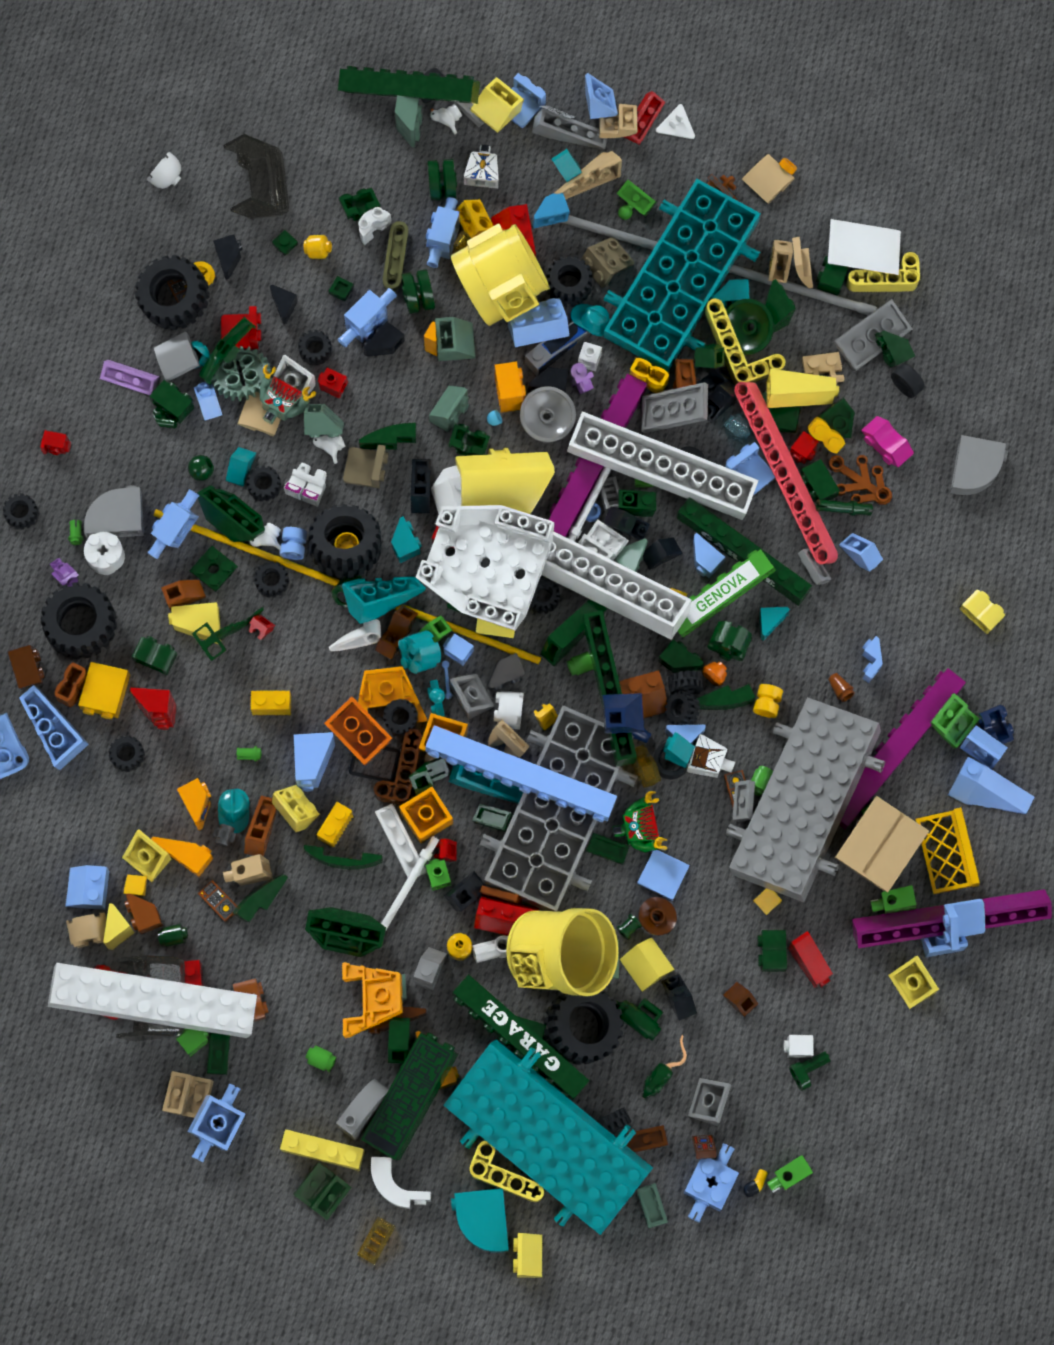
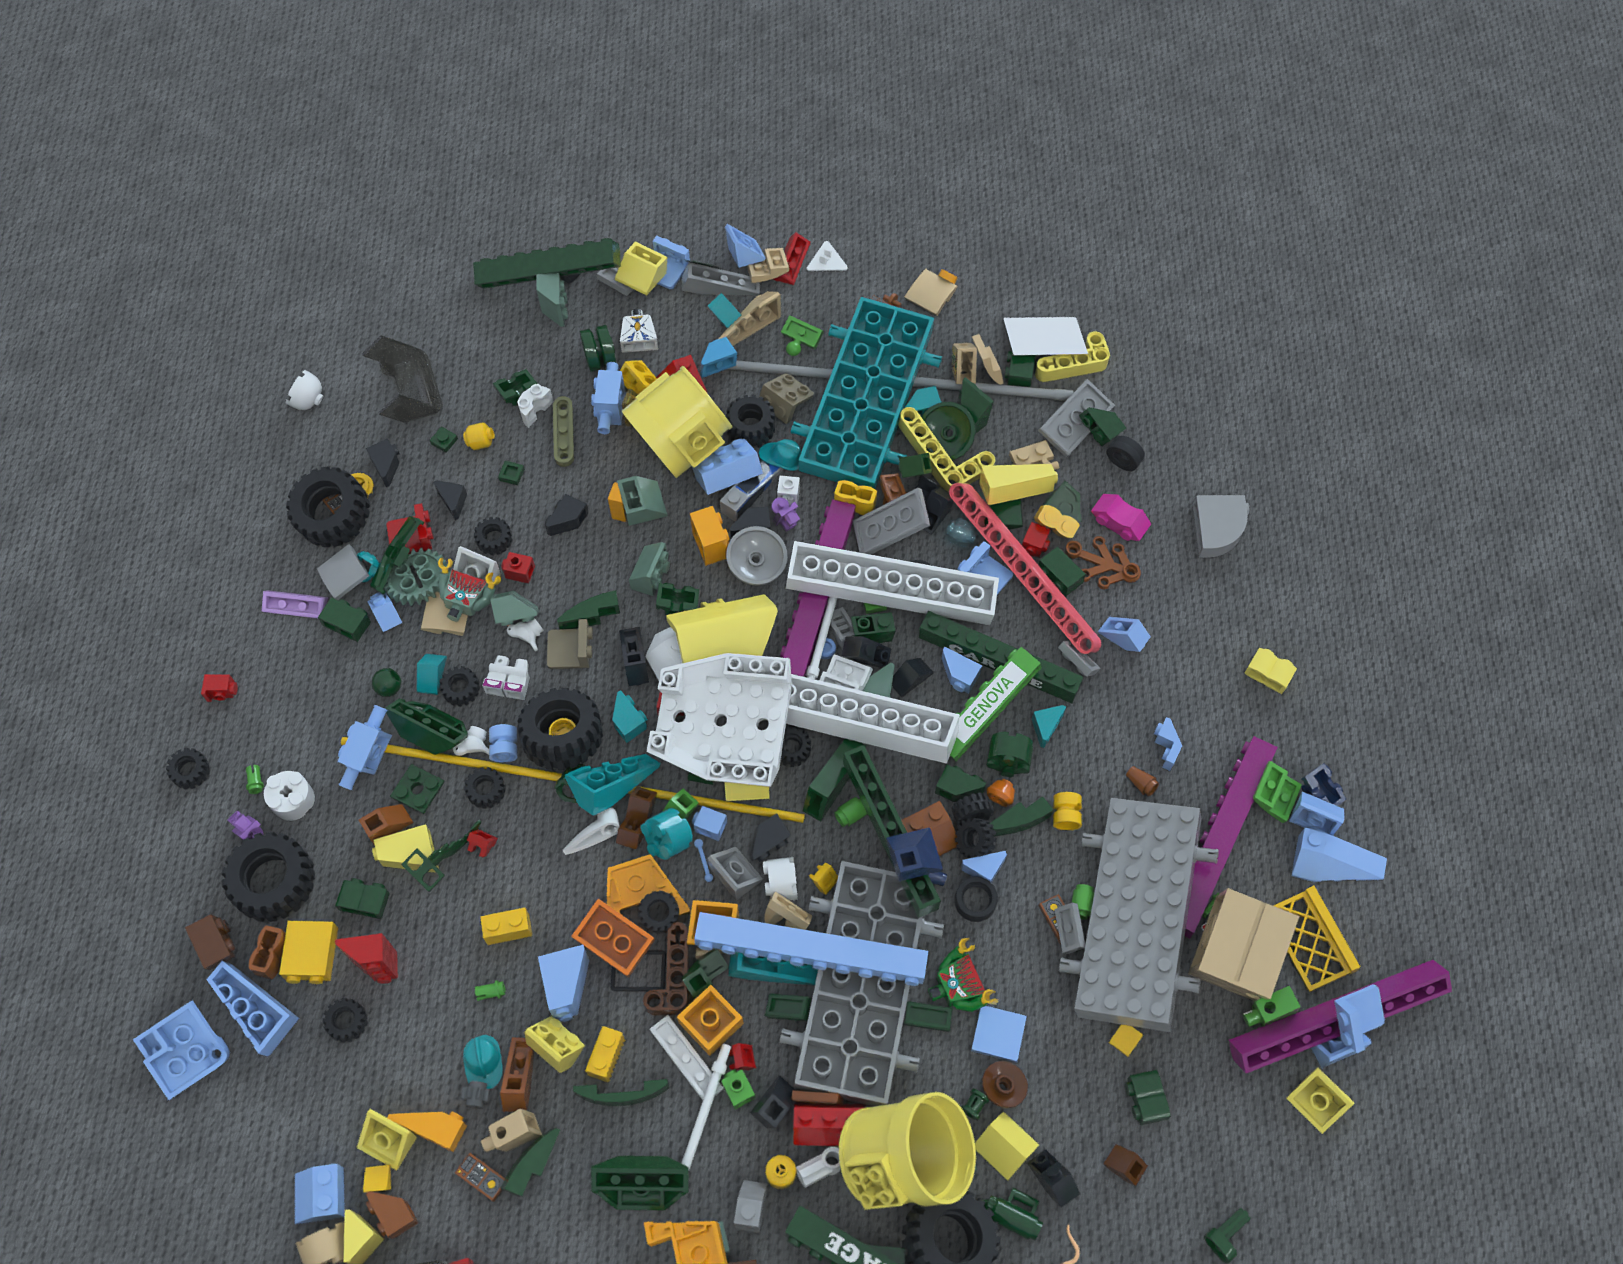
camera: 10 degrees left, 10 degrees down
(116, 513) = (298, 748): light grey brick -> none
(162, 419) = (337, 640): dark green arm -> none
(172, 935) = (431, 1232): dark green brick -> none
(196, 799) = (435, 1059): light orange slope -> none
(366, 317) = (542, 493): light blue brick -> none
(417, 291) = (591, 459): dark green wheel -> none
(436, 695) = (695, 879): teal plate -> none
(447, 116) = (592, 291): white animal -> none
(494, 418) = (699, 571): medium azure hinge -> none
(646, 767) = (951, 914): clear yellow slope -> none
(678, 750) = (984, 885): teal slope -> none
(709, 758) = (1018, 888): torso -> none
(799, 1046) = (1209, 1208): white brick -> none
(810, 960) = (1195, 1099): red slope -> none
(844, 507) = (1102, 590): dark green pin -> none

